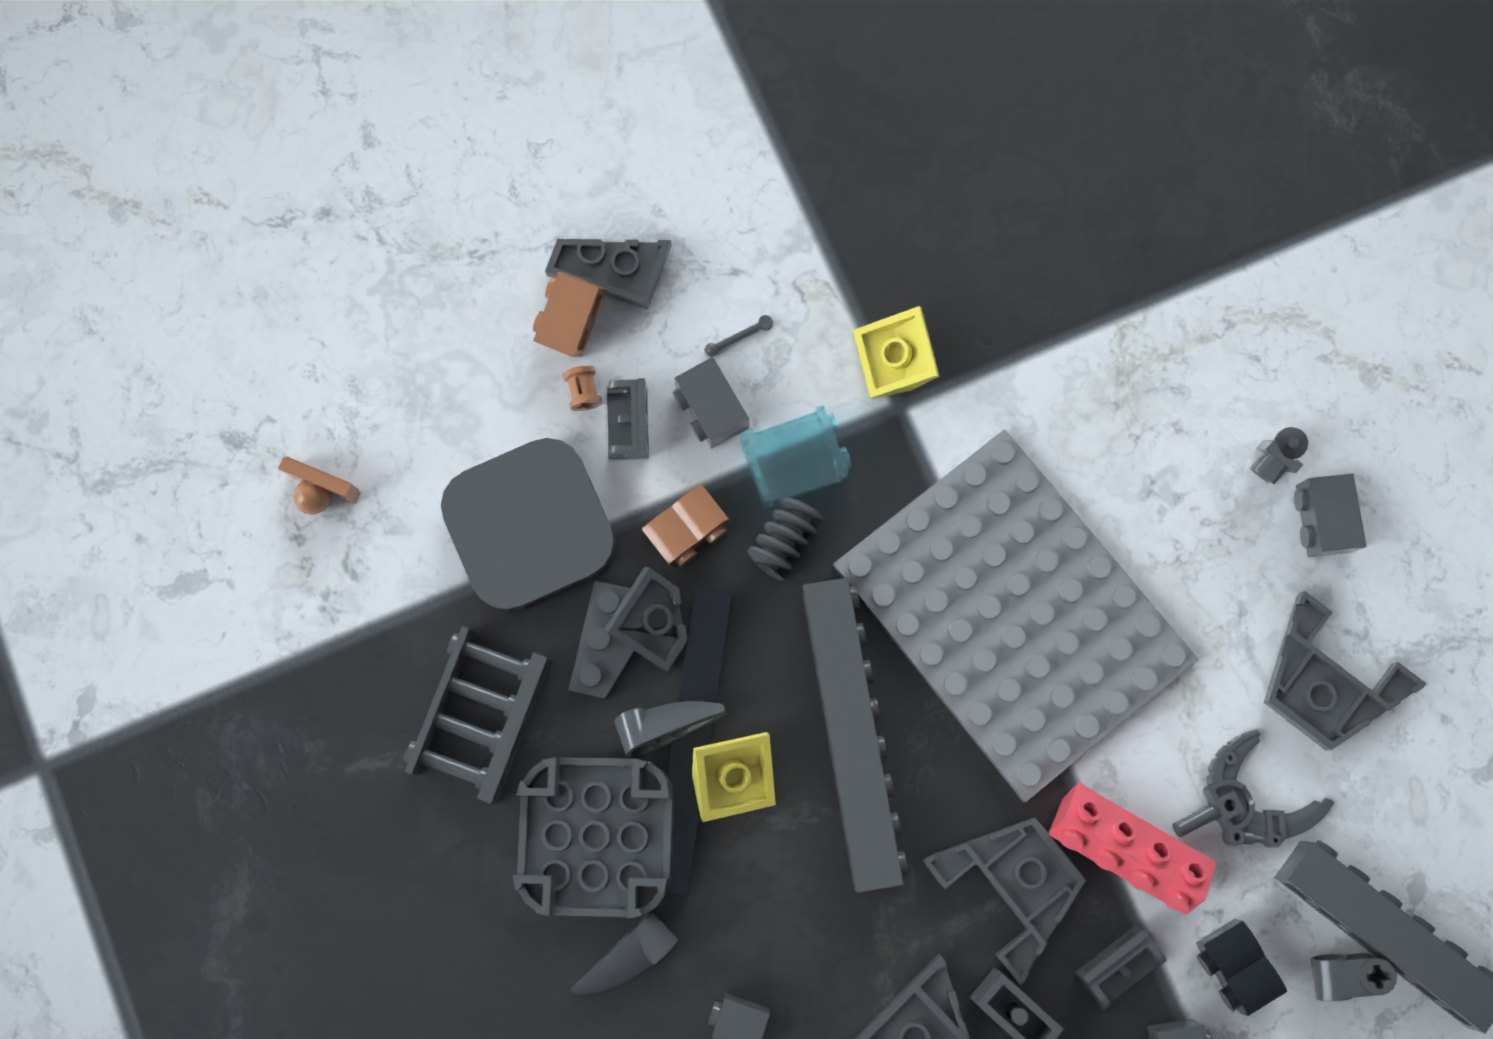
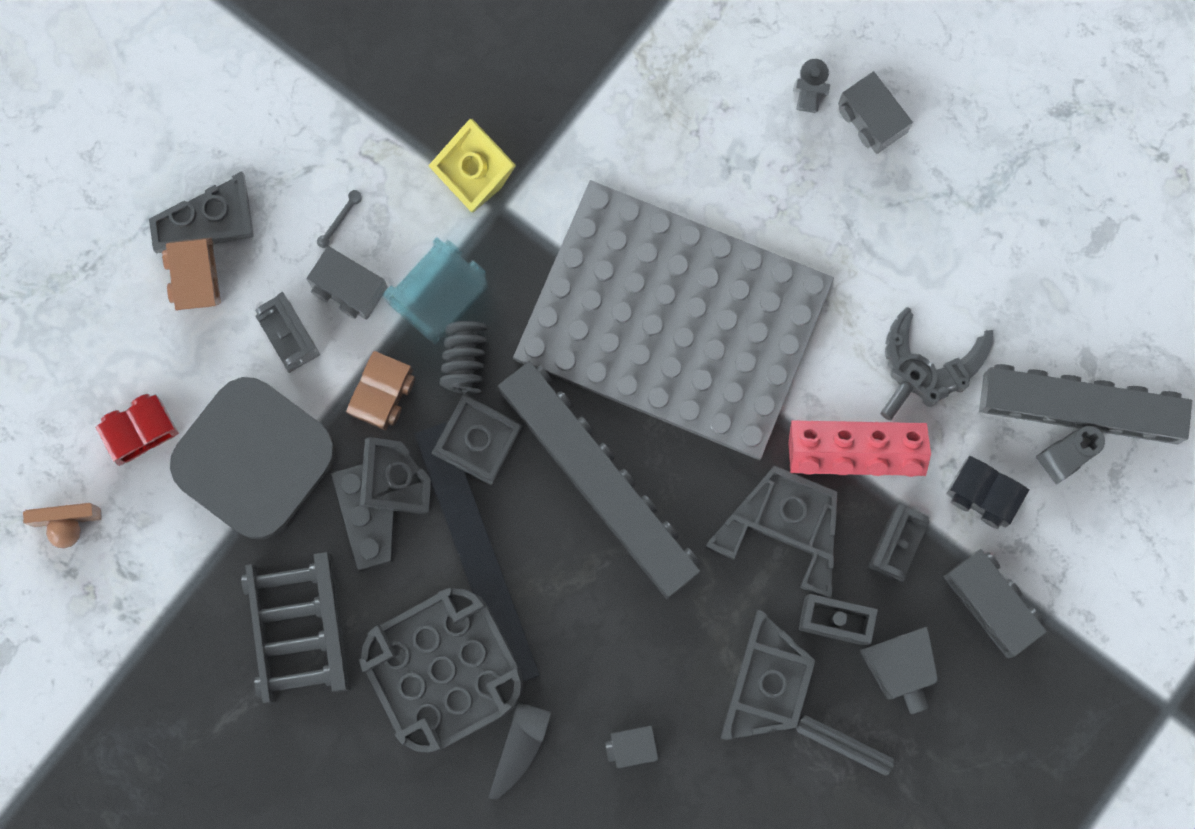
camera: 30 degrees left, 0 degrees up
(434, 435) = (136, 429): none -> red brick
(582, 388) = (236, 327): nougat bush -> none
(657, 727) = (443, 561): dark grey piece -> none
(733, 776) = (525, 563): light yellow slope -> none
(754, 626) = (477, 439): none -> dark grey tile
(1318, 692) = (937, 253): dark grey wing -> none

